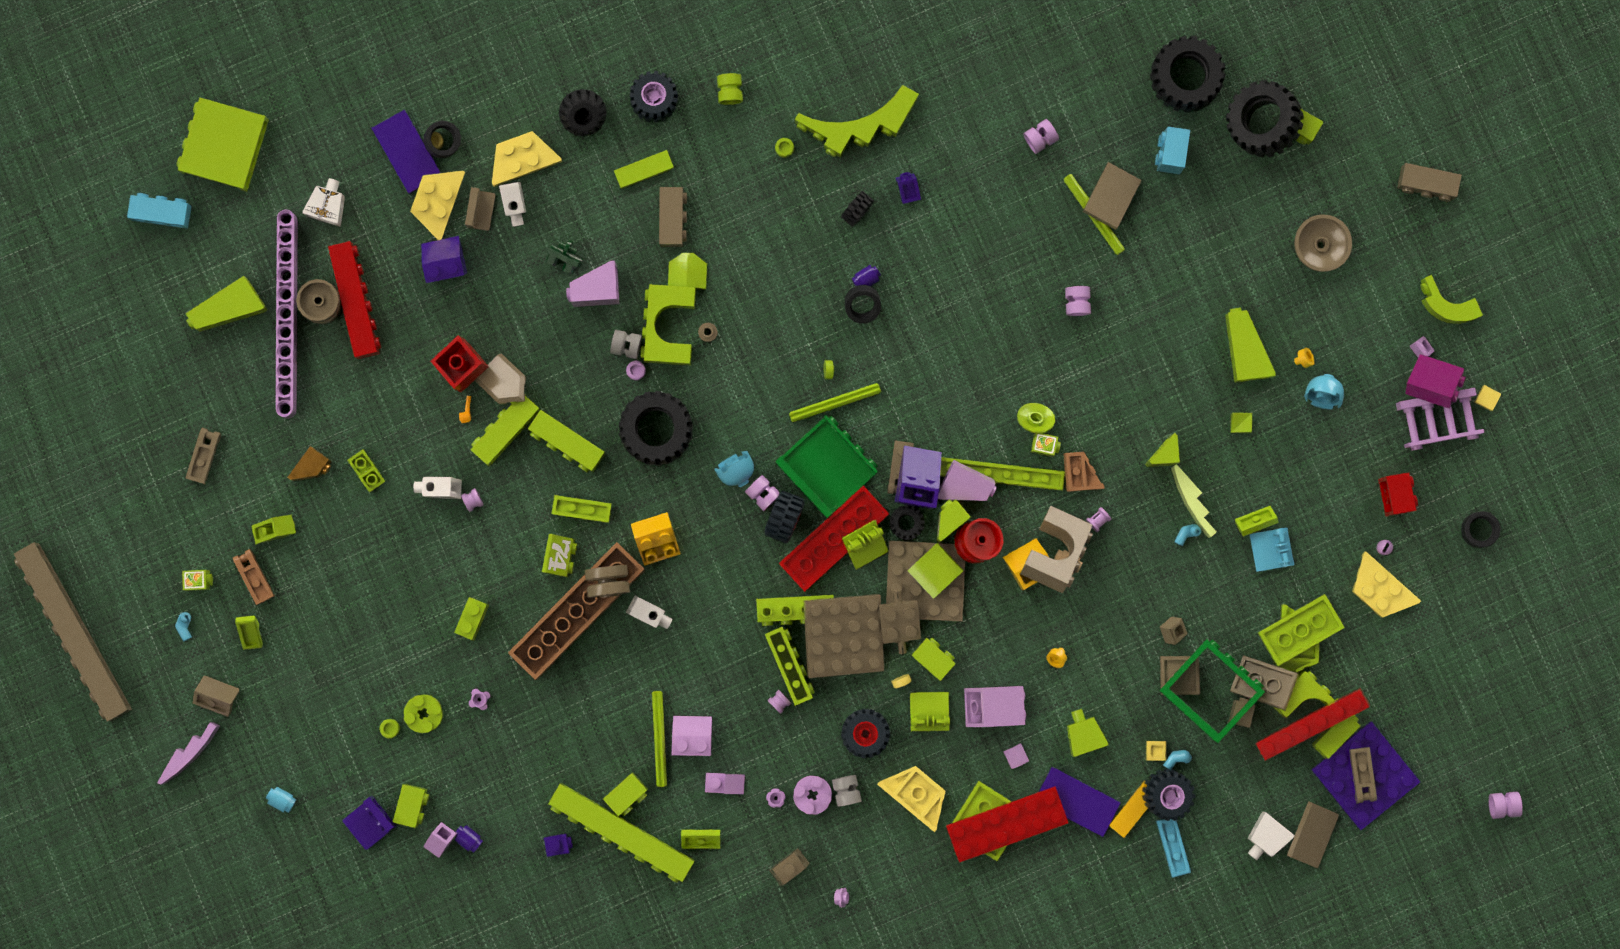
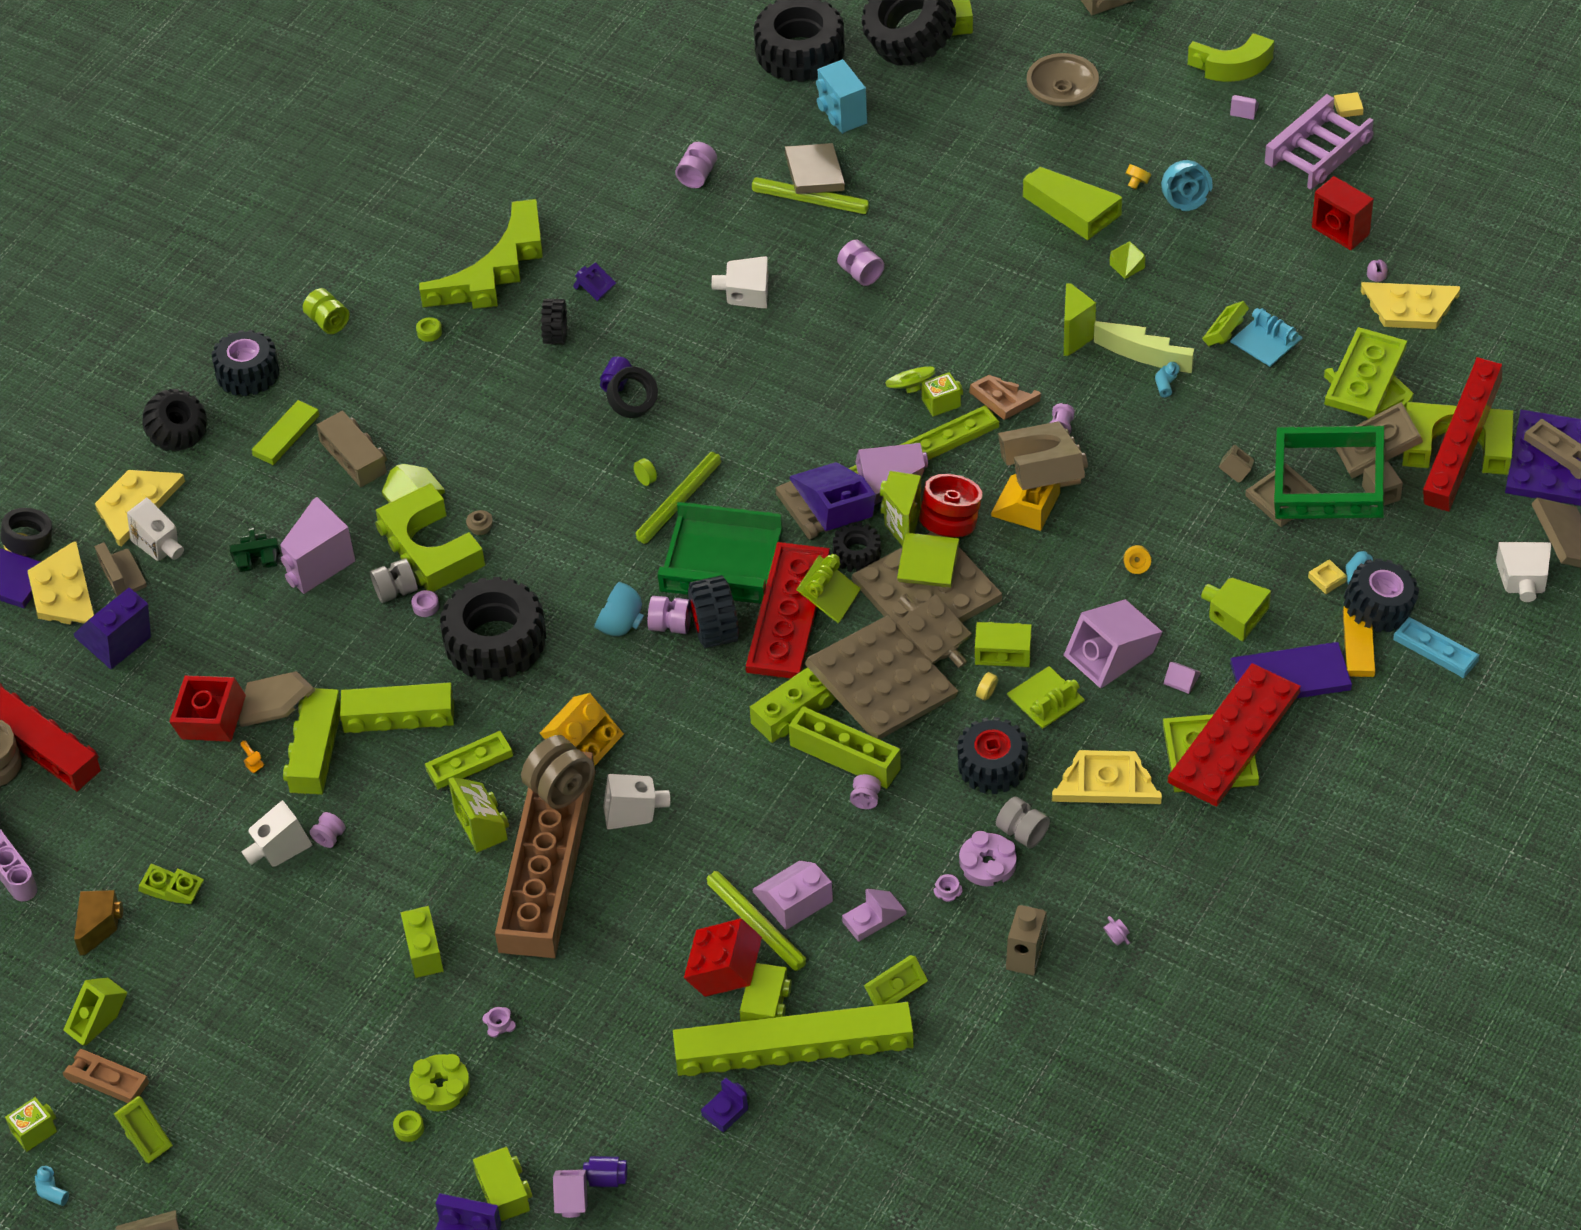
camera: 30 degrees left, 35 degrees down
(618, 758) = (723, 957): none -> red brick
(997, 260) = (745, 282): none -> white torso
(1435, 381) = (1283, 108): magenta brick -> none
(1465, 529) = (1454, 185): black tyre -> none

